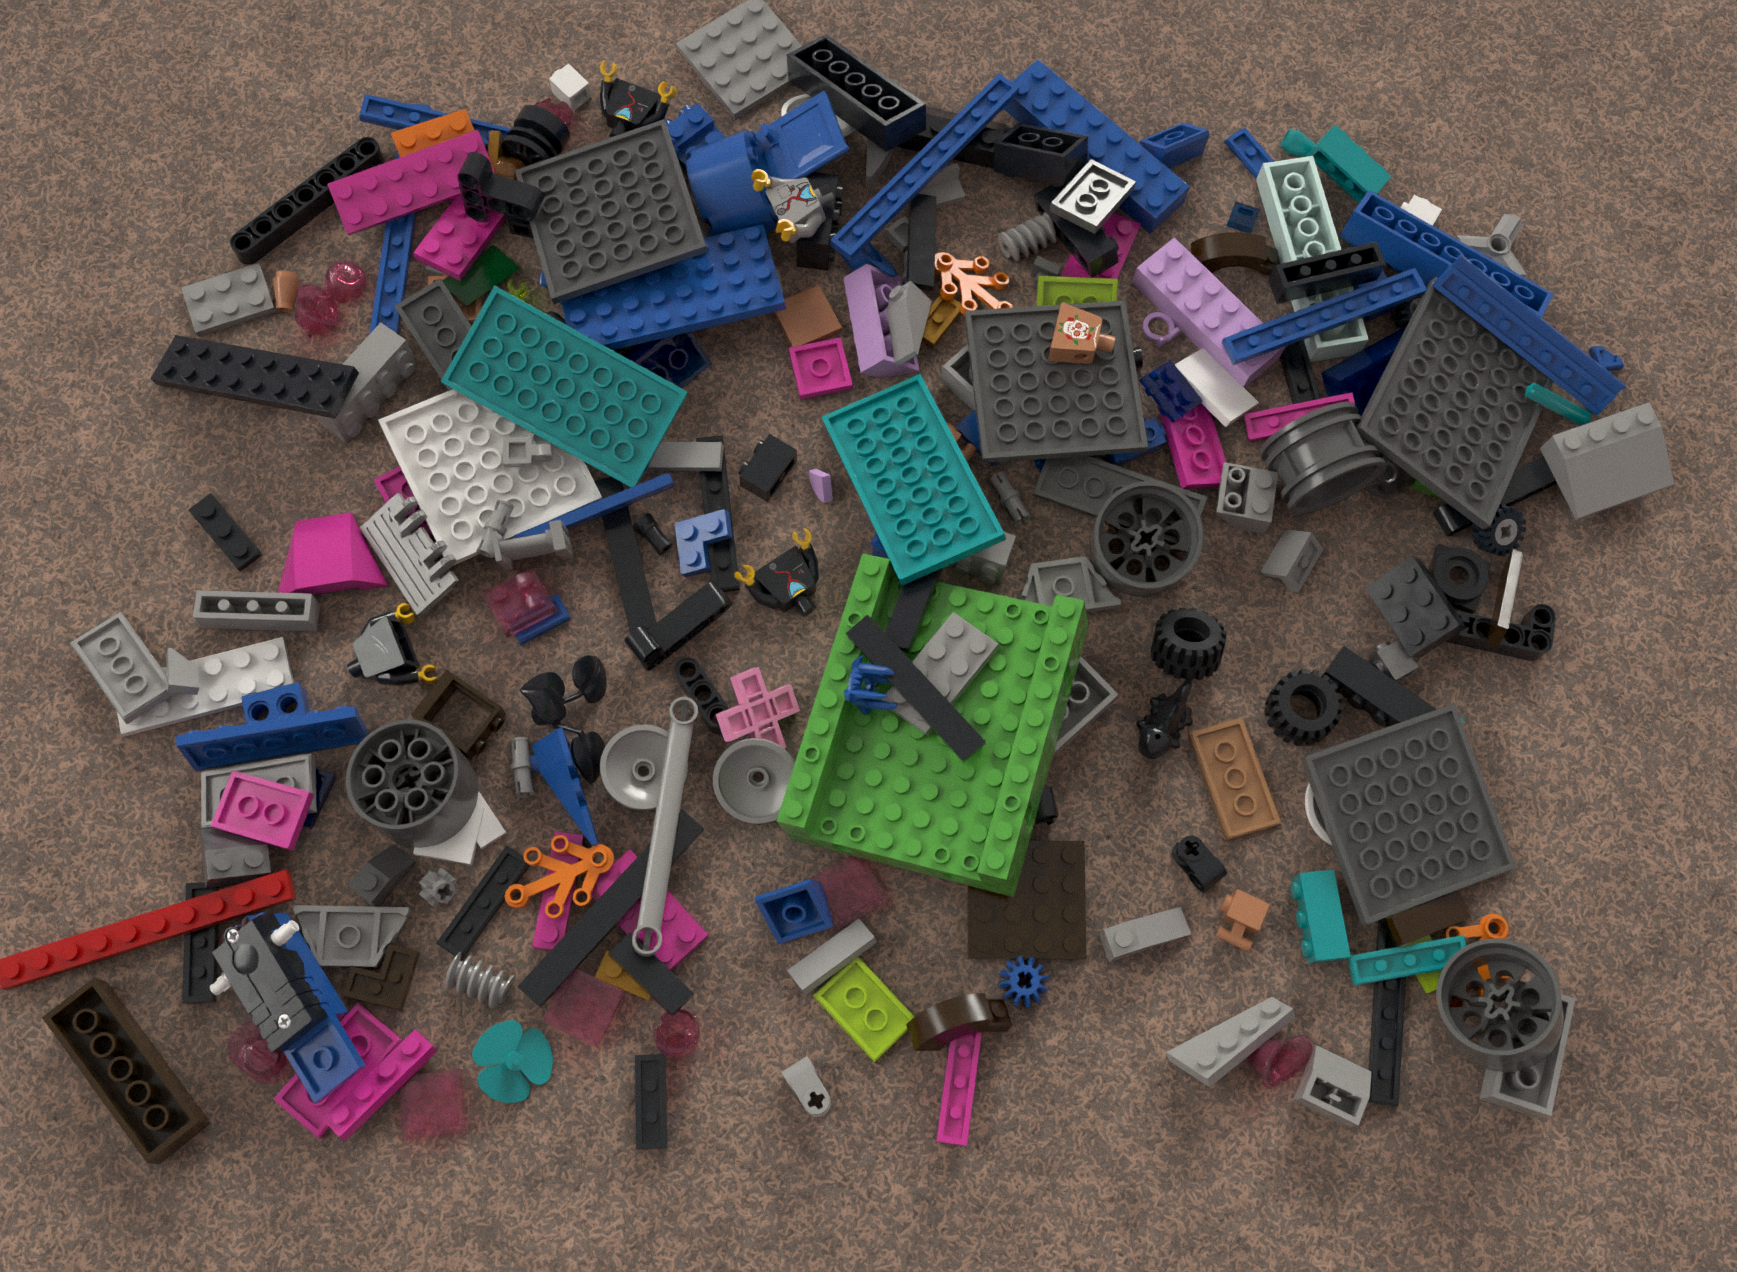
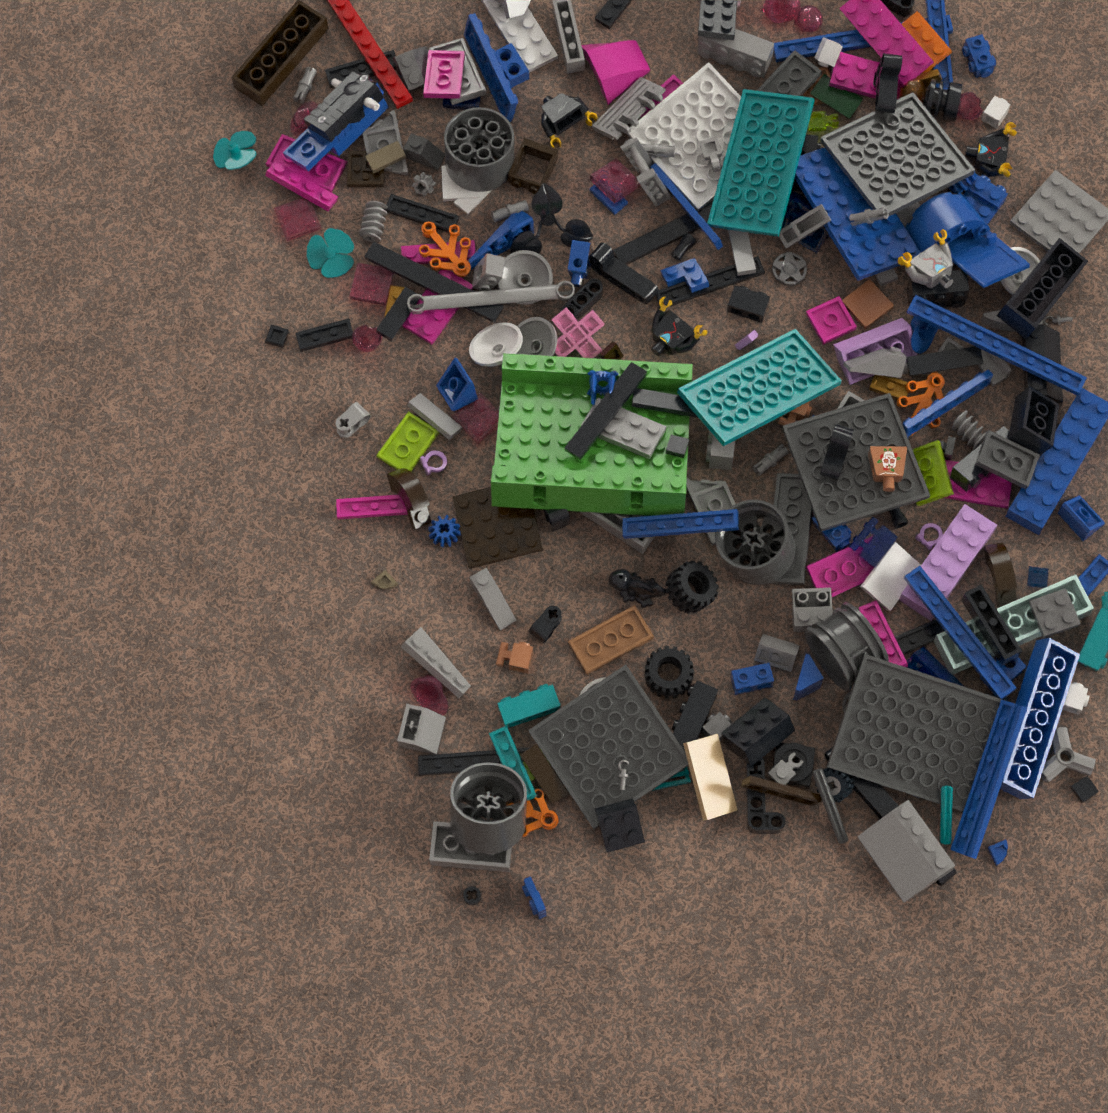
camera: 85 degrees right, 0 degrees up
(197, 1042) = (305, 85): none -> light grey pin
(283, 1191) = (233, 153): none -> teal piece
(373, 936) = (385, 157): none -> dark tan tile
(412, 264) = (828, 52): none -> white brick
(480, 85) = (979, 56): none -> blue brick
(624, 819) = (488, 272): none -> light grey brick
(629, 680) = (578, 257): none -> blue torso
(630, 1181) = (277, 336): none -> black tile
(678, 353) = (804, 226): none -> light grey slope
(701, 262) = (869, 216): none -> light grey pin
(725, 403) = (789, 268): none -> flat silver wheel
(729, 840) = (493, 341): none -> white dish
(798, 673) = (612, 351): none -> dark brown plate
(900, 989) = (423, 460): none -> lavender piece
(981, 245) = (950, 400): none -> blue plate
(988, 603) = (677, 446): none -> tile
(1044, 389) = (836, 452): none -> black beam
(1081, 1093) = (384, 581): none -> dark tan tile
(1107, 629) = (680, 524): none -> blue plate
(1314, 200) = (1054, 613): none -> flat silver plate
(1330, 599) = (752, 678): none -> blue brick
(1348, 527) = (809, 679): none -> blue slope
(1457, 803) = (623, 775): none -> light grey hand
(1472, 686) = (710, 777): none -> tile
(1475, 589) = (783, 772): none -> light grey plate
(1525, 827) = (619, 825): none -> black brick
(1529, 542) = (830, 806): none -> dark grey axle
(1535, 240) = (1084, 789): none -> black tile
(1582, 1064) = (471, 889): none -> black bush
(1621, 973) = (536, 903): none -> blue plate

